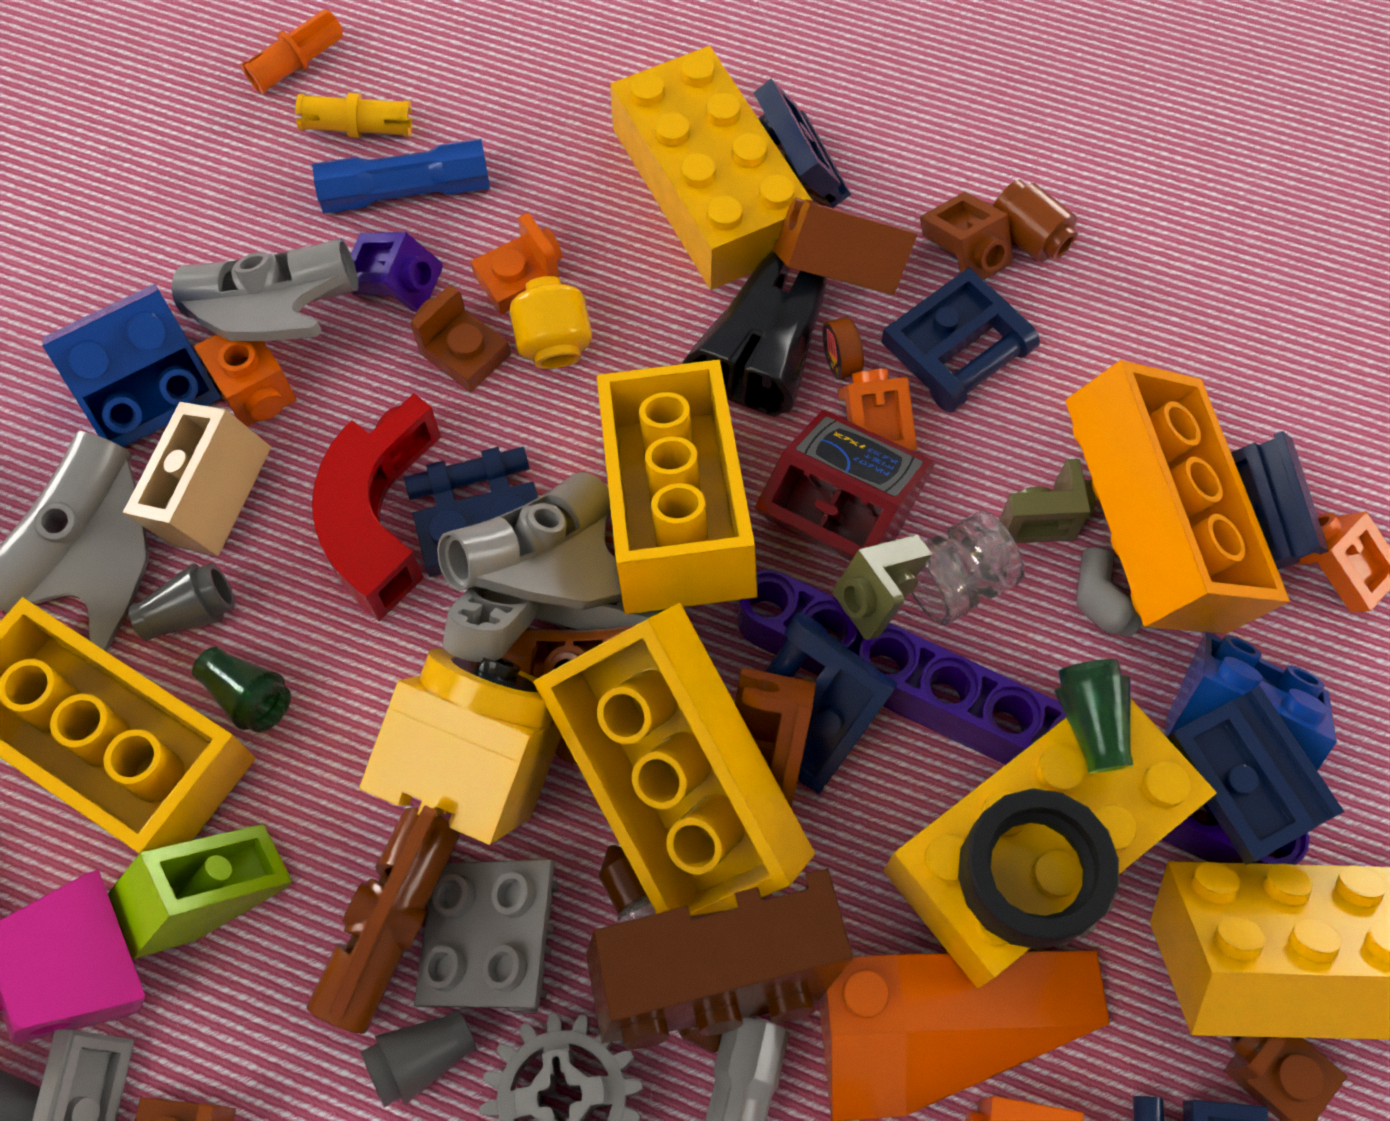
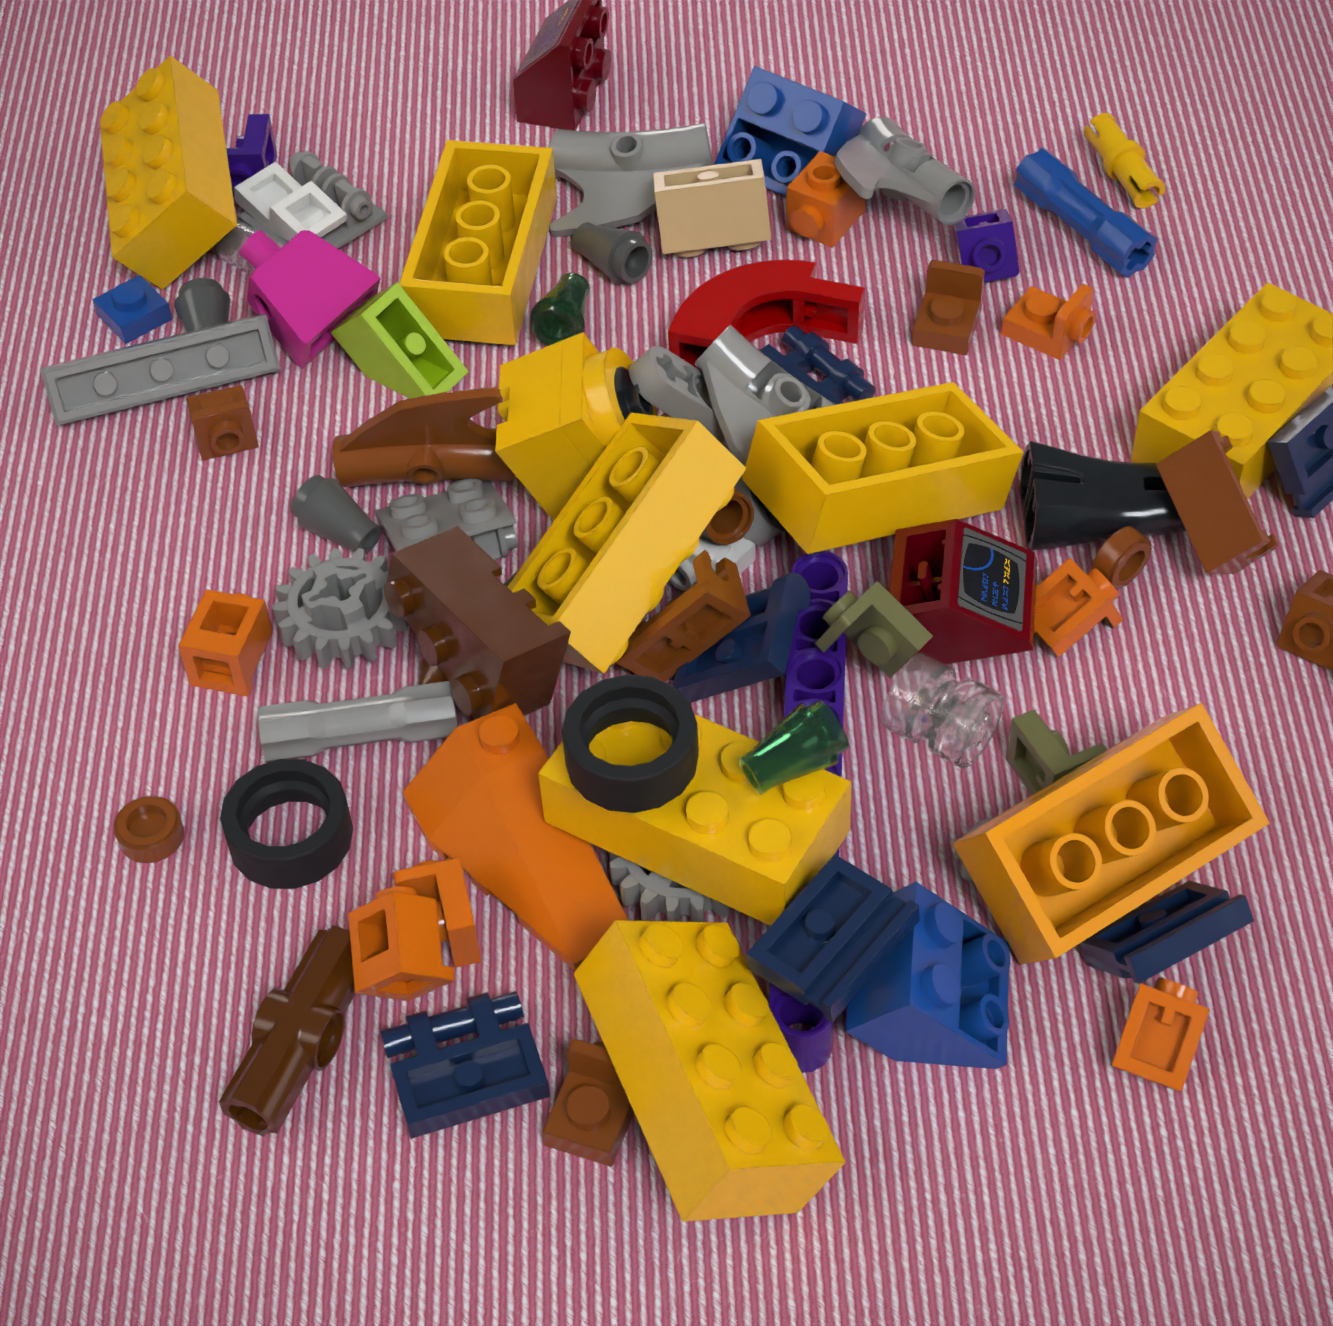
camera: 70 degrees right, 15 degrees down
(292, 51) = (1160, 98): orange axle -> none
(550, 323) = (1001, 353): yellow head -> none
(947, 325) = (1208, 631): dark blue plate -> none

